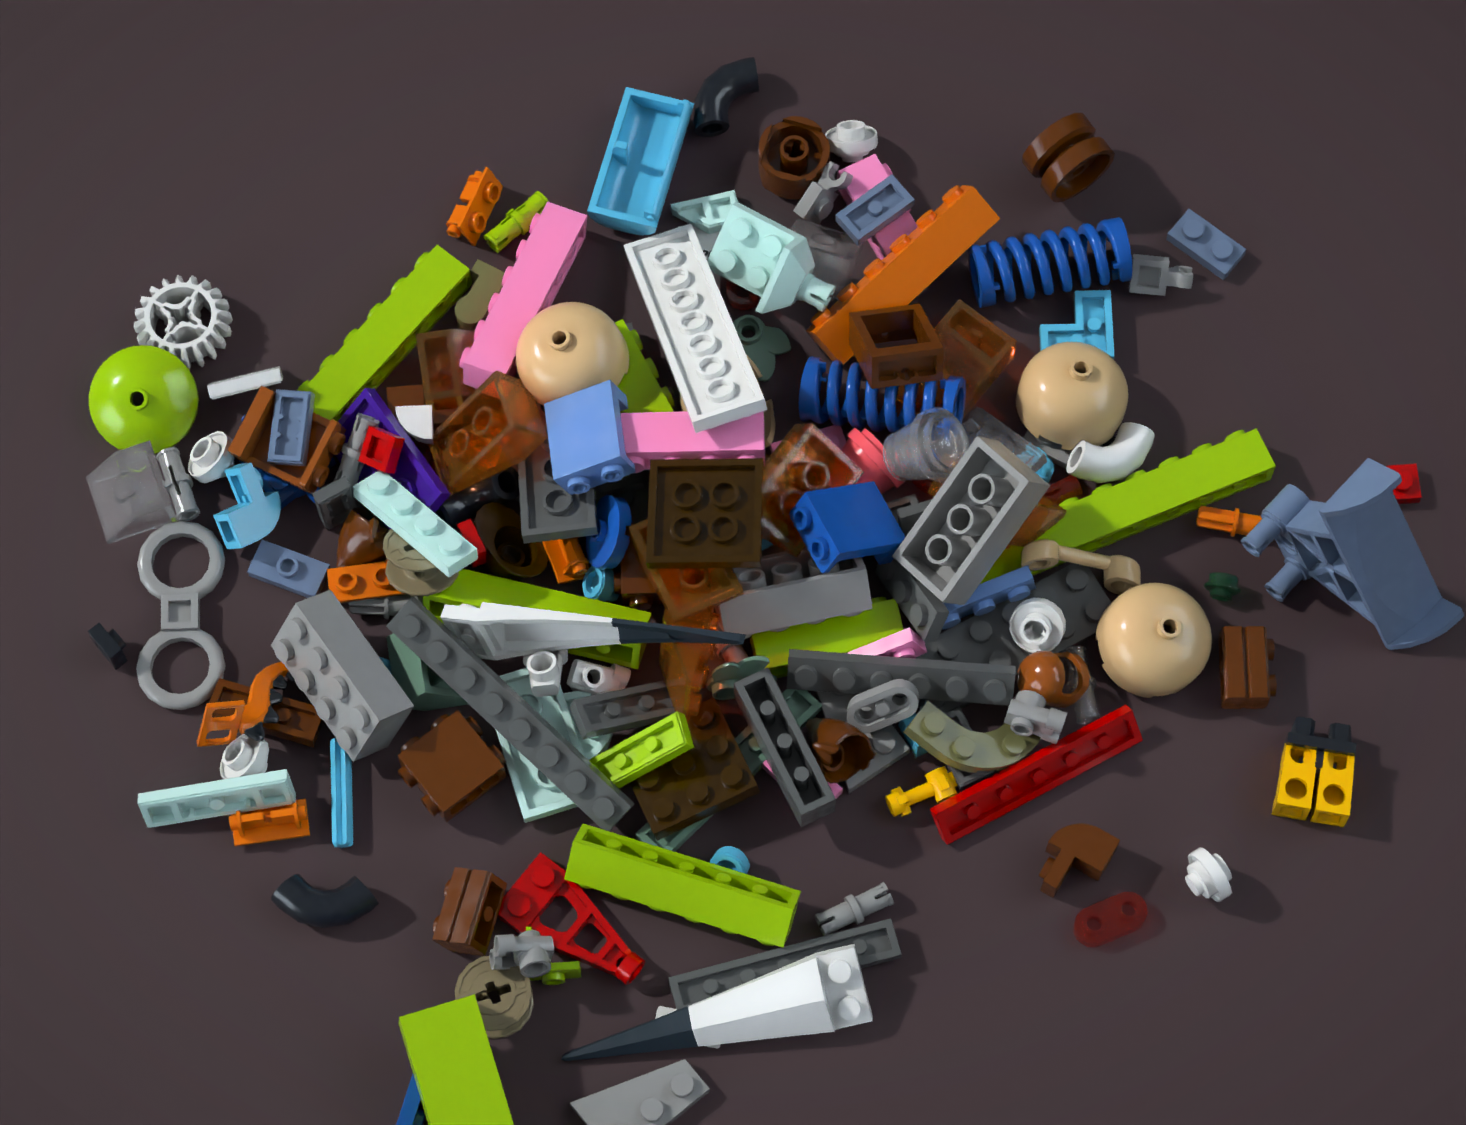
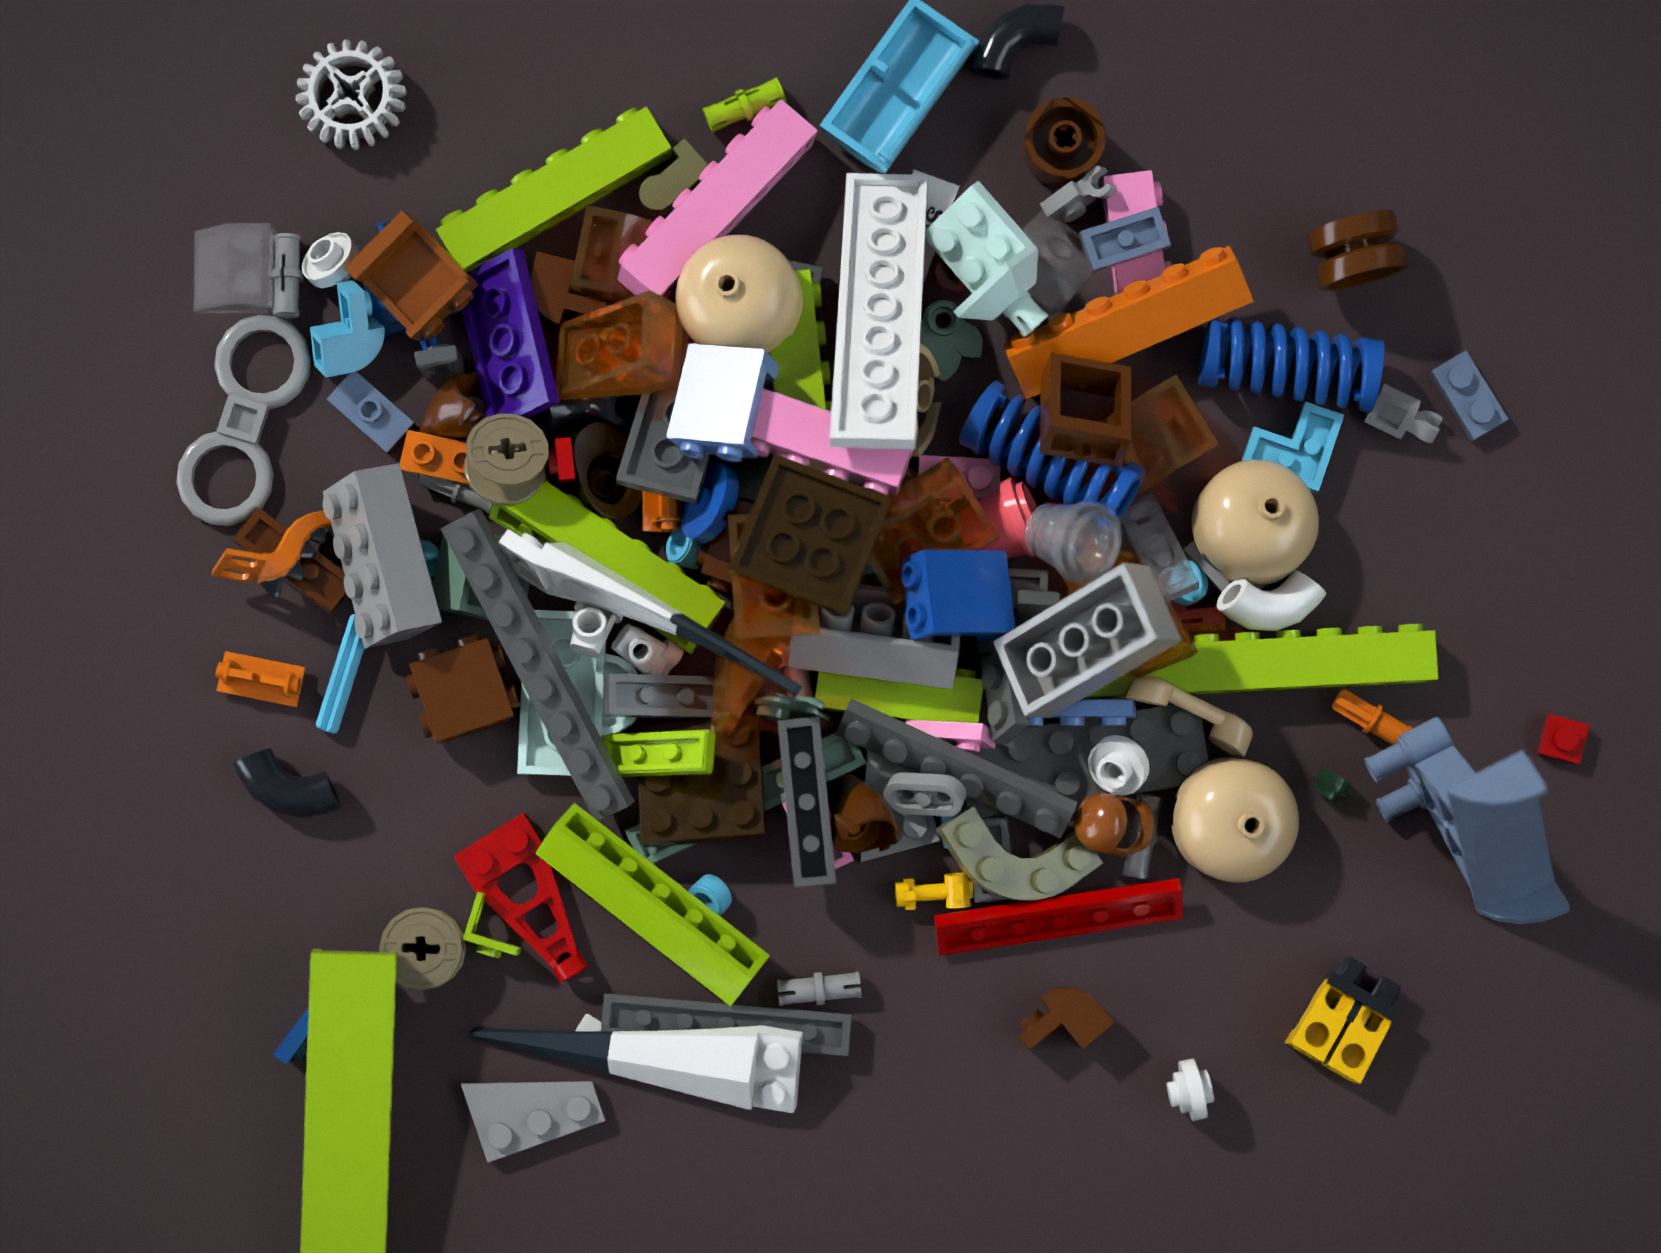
camera: 15 degrees right, 15 degrees up
(109, 644) = (157, 429): black plate -> none
(168, 398) = (304, 165): lime dish -> none
(216, 798) = (212, 638): light aqua plate -> none
(244, 757) = (253, 608): white plate -> none
(245, 382) = (391, 191): white tile -> none
(291, 427) = (419, 265): sand blue plate -> none
(349, 465) = (480, 314): light grey pin -> none
(381, 449) = (504, 327): red plate -> none
(415, 523) = (510, 424): light aqua plate -> none
(417, 421) = (554, 304): white tile -> none
(469, 911) = (427, 851): reddish brown brick -> none
(481, 195) = (718, 58): orange hinge -> none
(527, 951) = (469, 923): light grey plate -> none
(706, 212) = (951, 167): light aqua tile -> none
(852, 140) = (1134, 141): white plate -> none
(1029, 716) = (1070, 859): light grey plate -> none
(1111, 918) = (1075, 1093): clear red plate -> none
(1245, 667) = (1319, 882): reddish brown brick -> none

